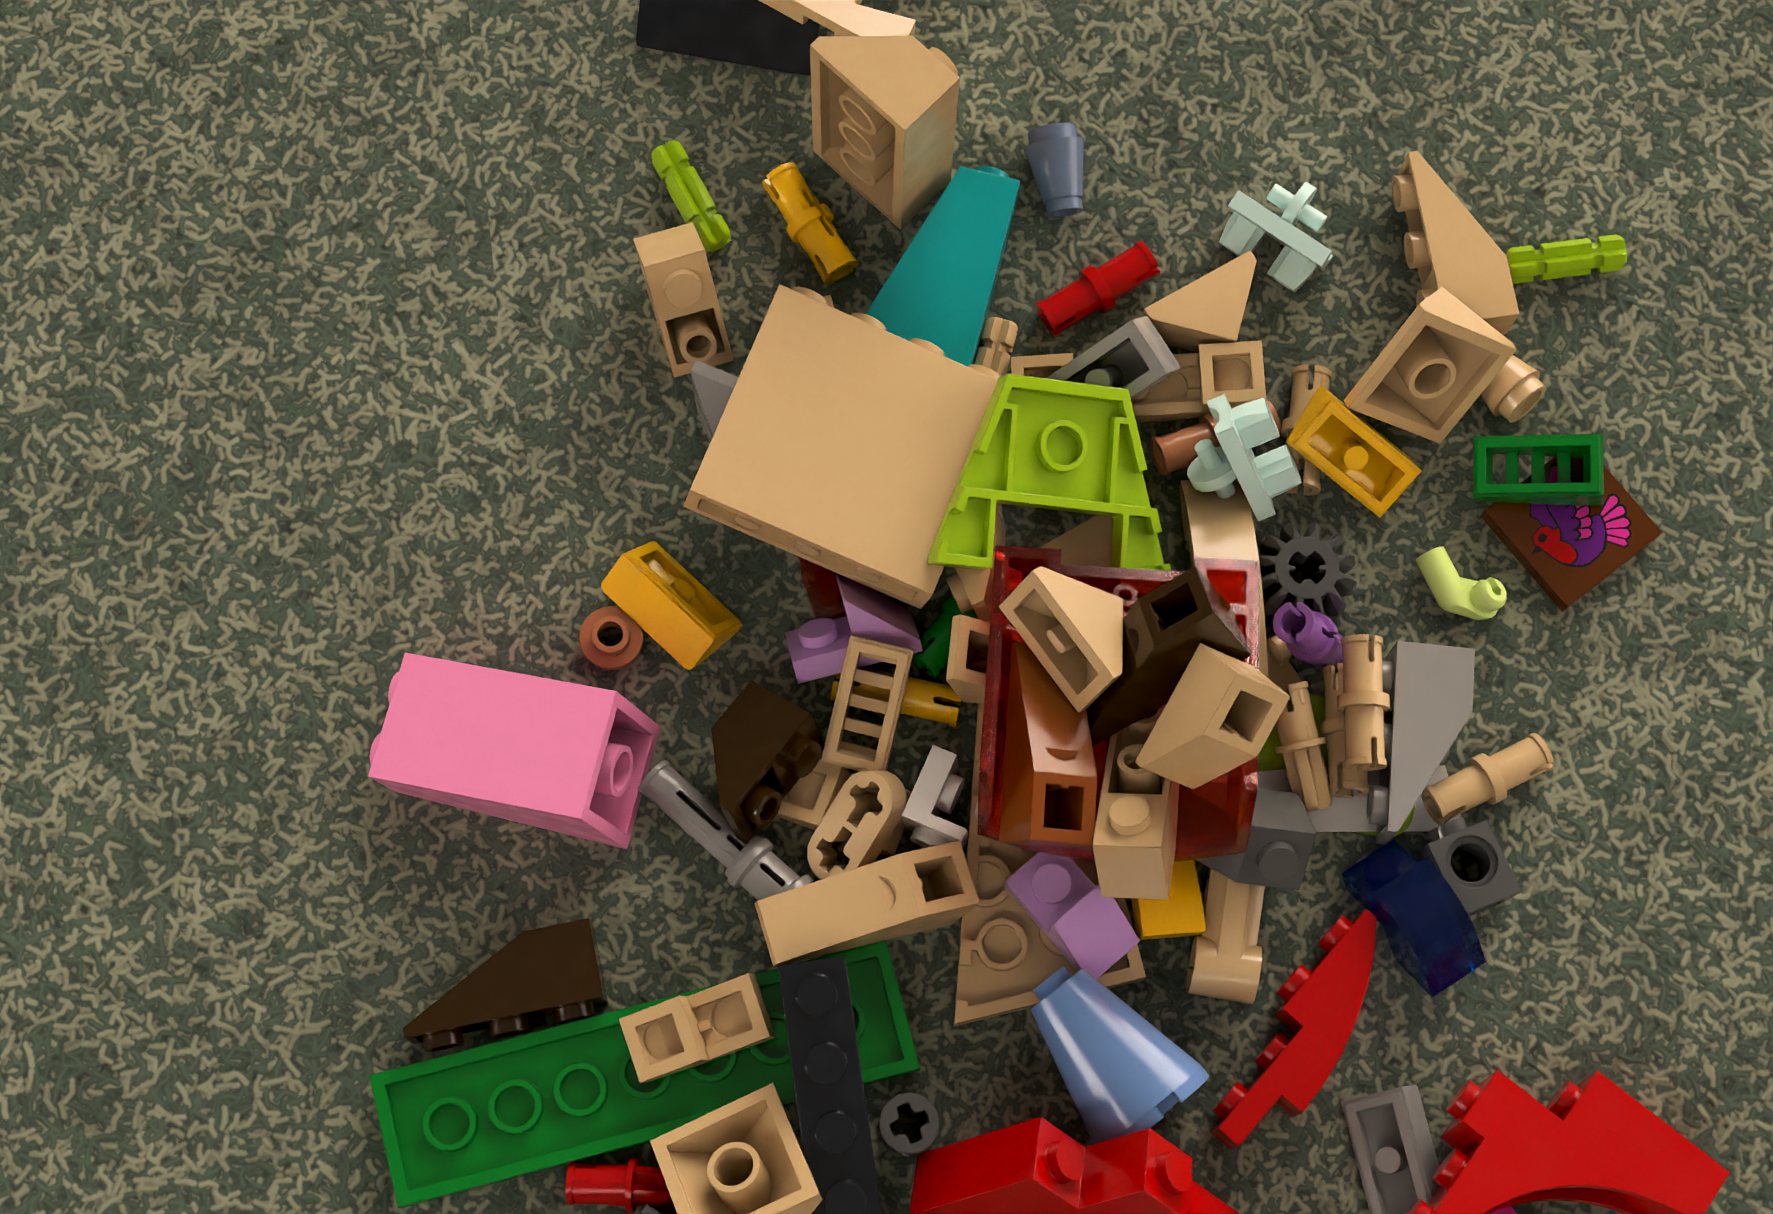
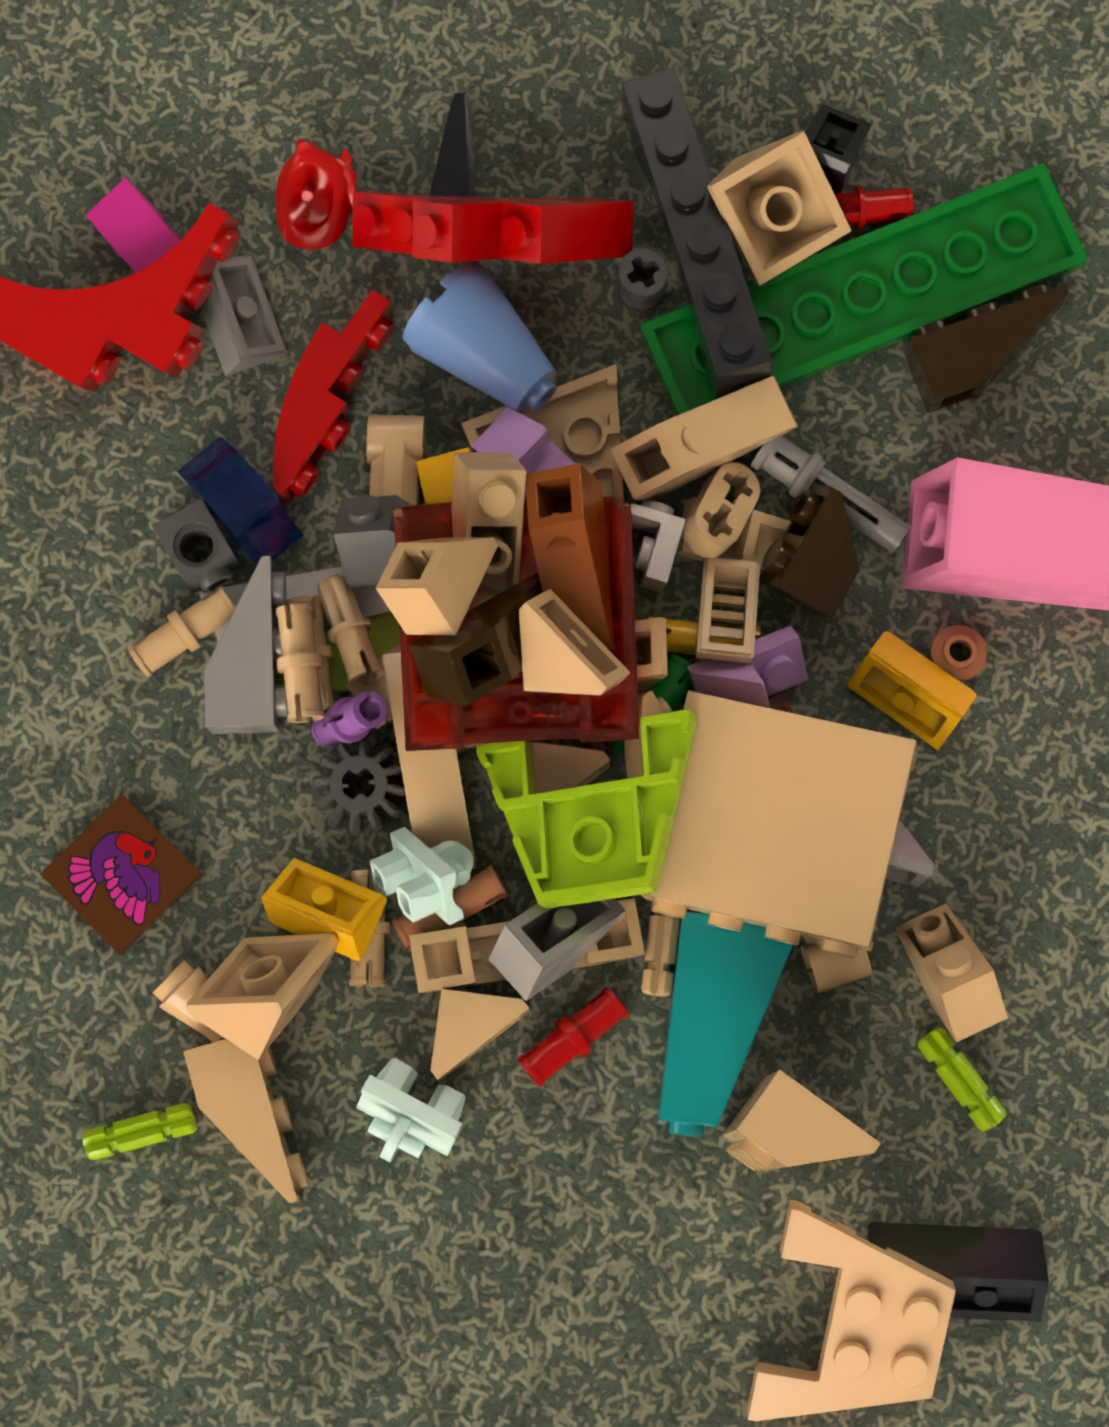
camera: 175 degrees right, 5 degrees up
(697, 1028) = (828, 326): tan slope -> none
(809, 223) = (847, 1067): yellow pin -> none
(1057, 167) = (624, 1153): sand blue cone -> none
(1458, 594) = (219, 796): yellowish green arm -> none
(1538, 446) = (130, 891): green slope -> none

